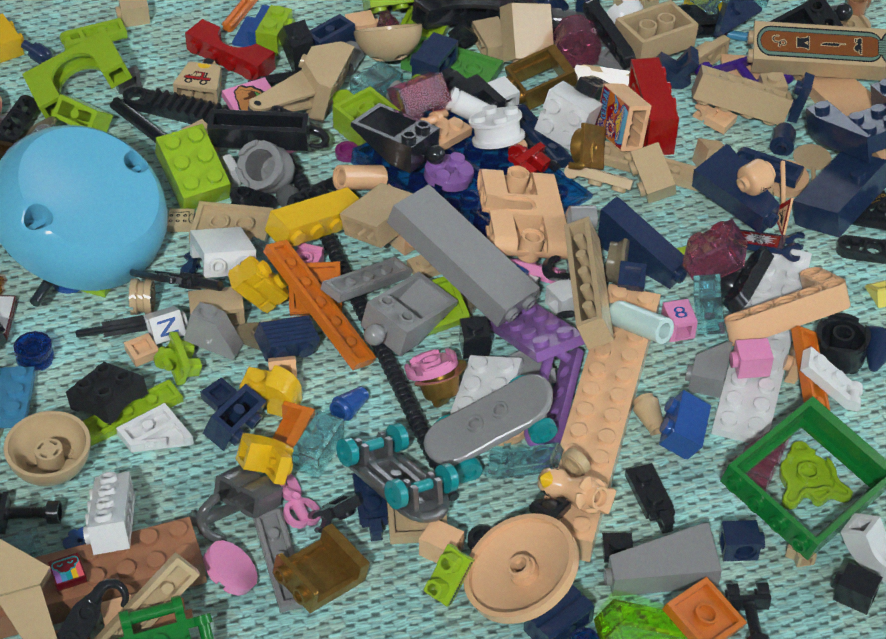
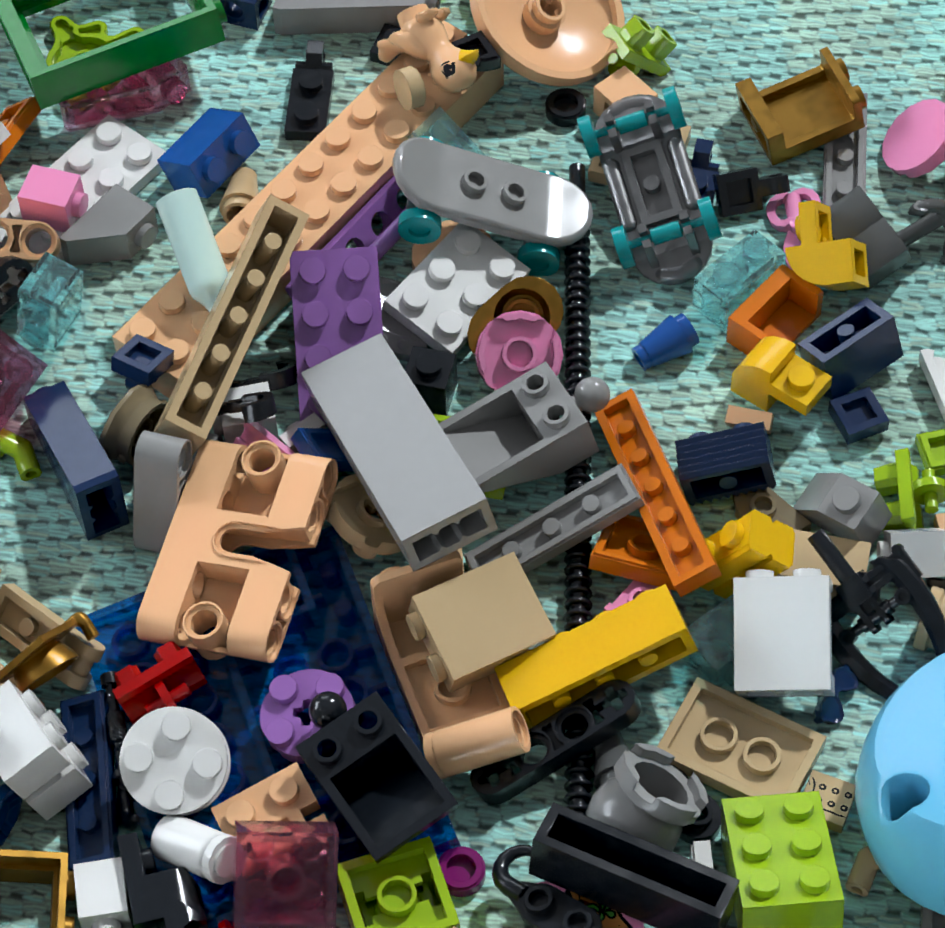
camera: 155 degrees left, 10 degrees up
(683, 318) = (99, 318): bright pink brick -> none

